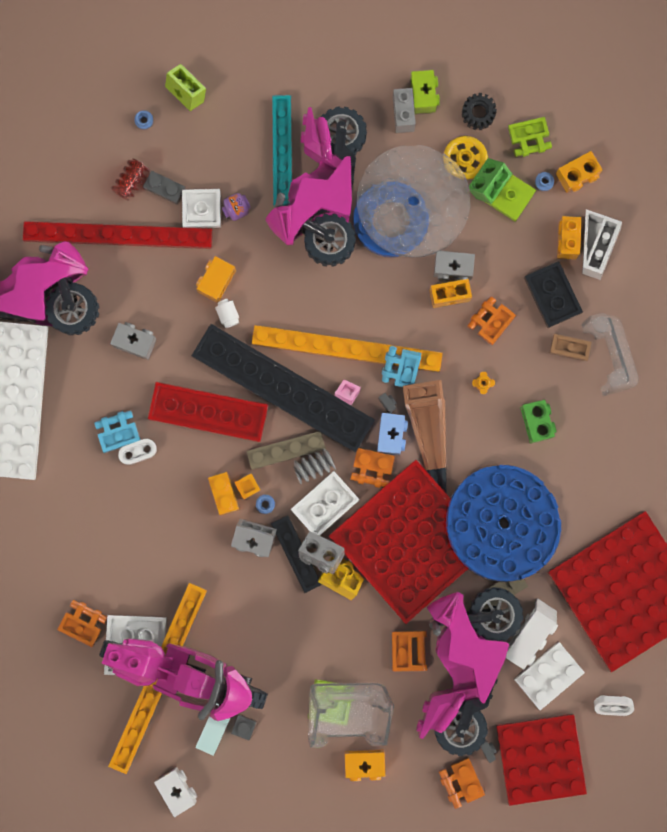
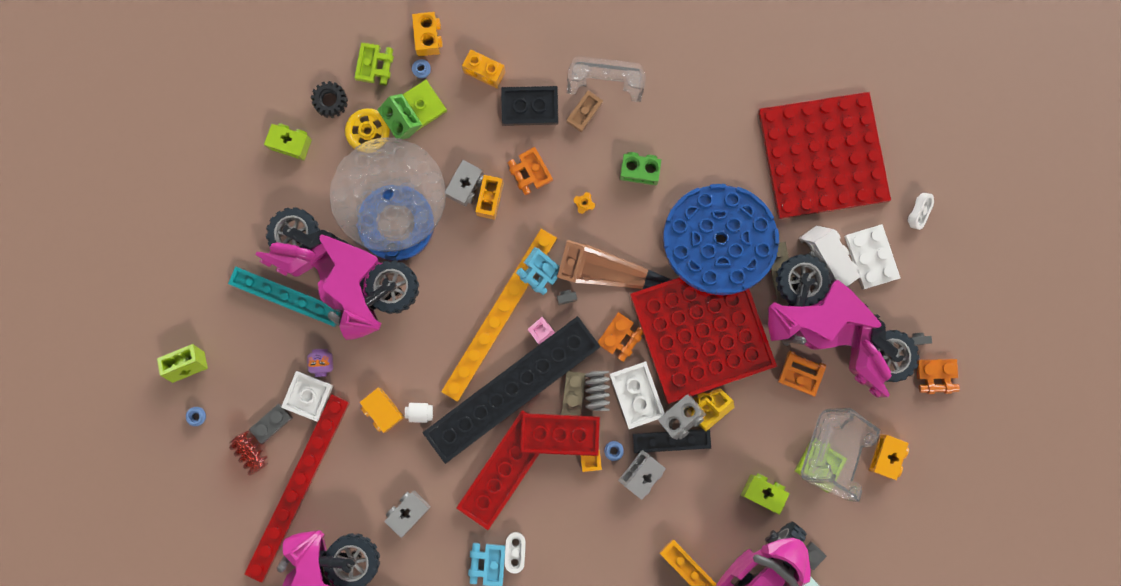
camera: 70 degrees left, 0 degrees up
(223, 493) = (589, 486): light orange brick -> none
(259, 447) = (560, 434): none -> red tile
(277, 669) = (774, 501): none -> lime brick
(388, 423) = (586, 307): light blue brick -> none
(403, 110) = (297, 167): light grey brick -> none
(541, 759) = (943, 295): red plate -> none
(599, 241) = (499, 44): white wedge -> none

